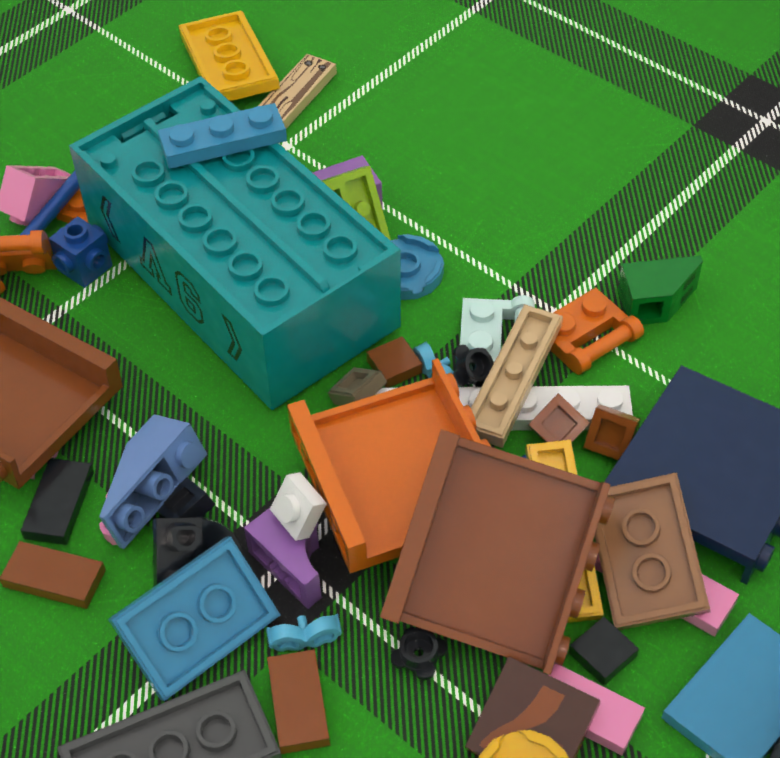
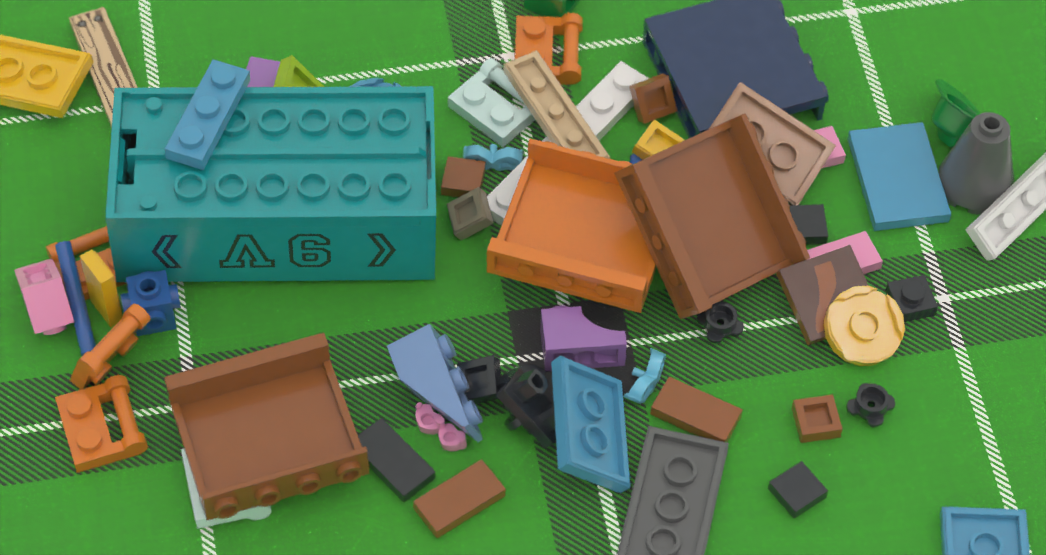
camera: 55 degrees left, 5 degrees up
(57, 202) = (101, 287): none -> yellow tile
(298, 506) = (570, 302): white plate -> none
(481, 363) = (521, 130): black plate -> none
(558, 421) = (618, 121): dark orange tile -> none

